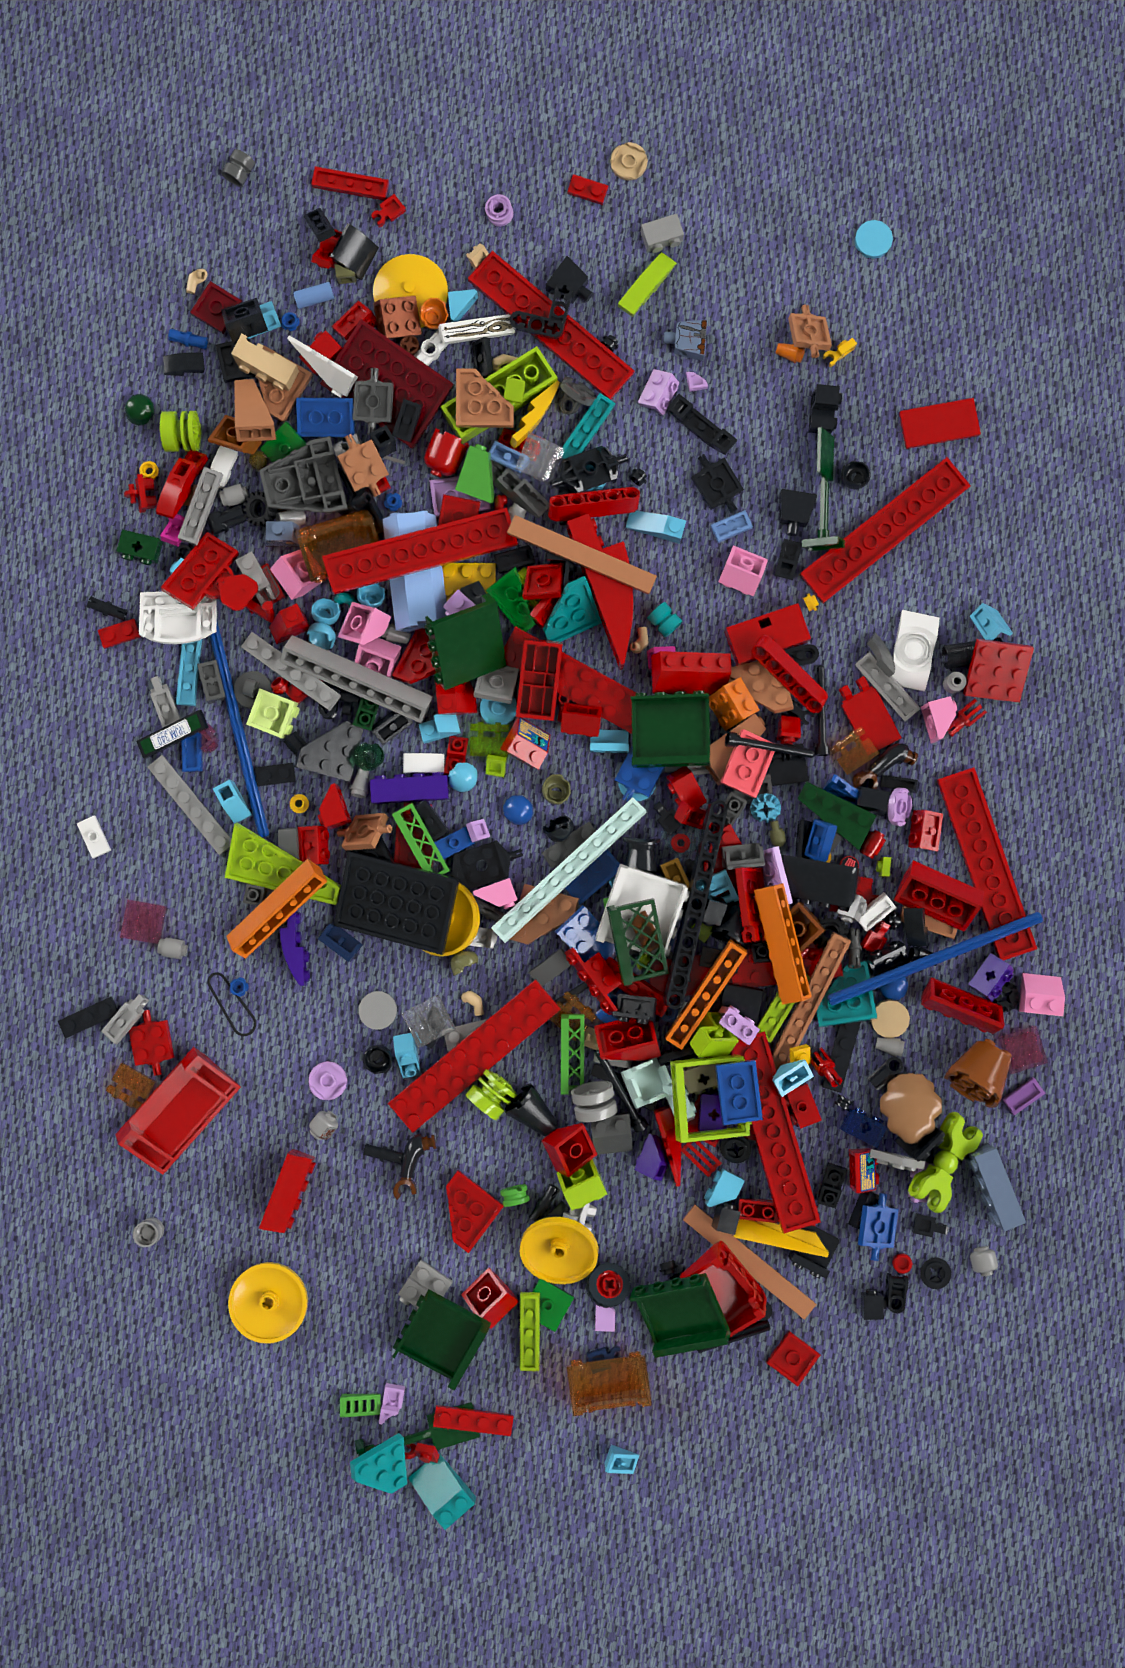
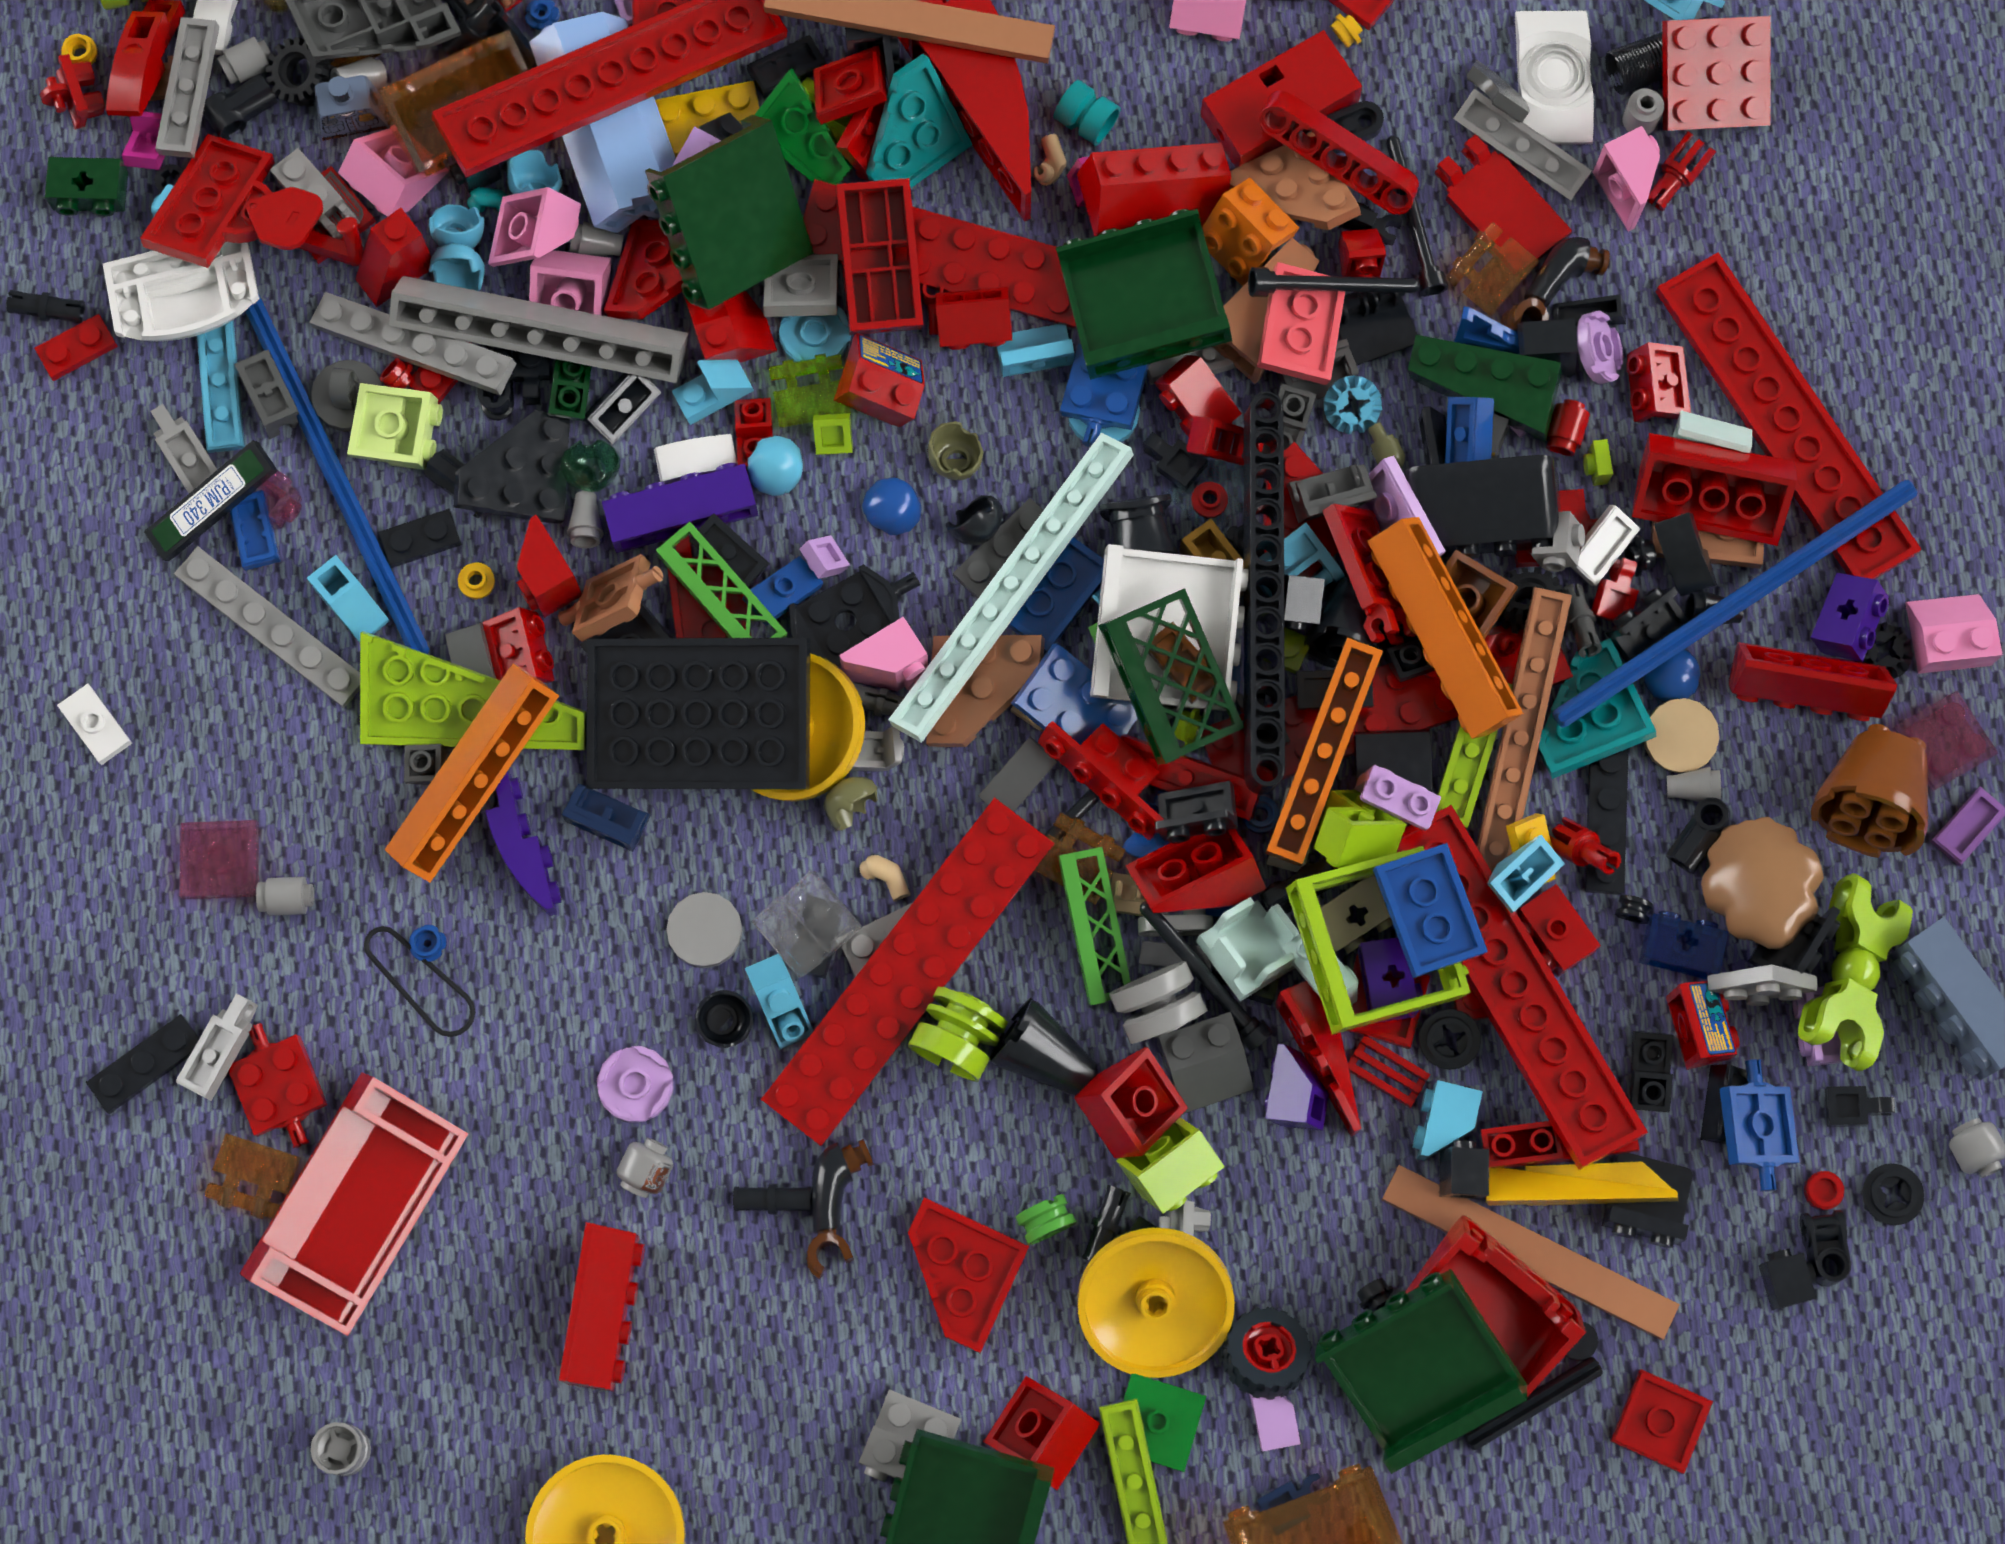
camera: 10 degrees left, 10 degrees down
(946, 865) = (1713, 432): none -> light aqua panel

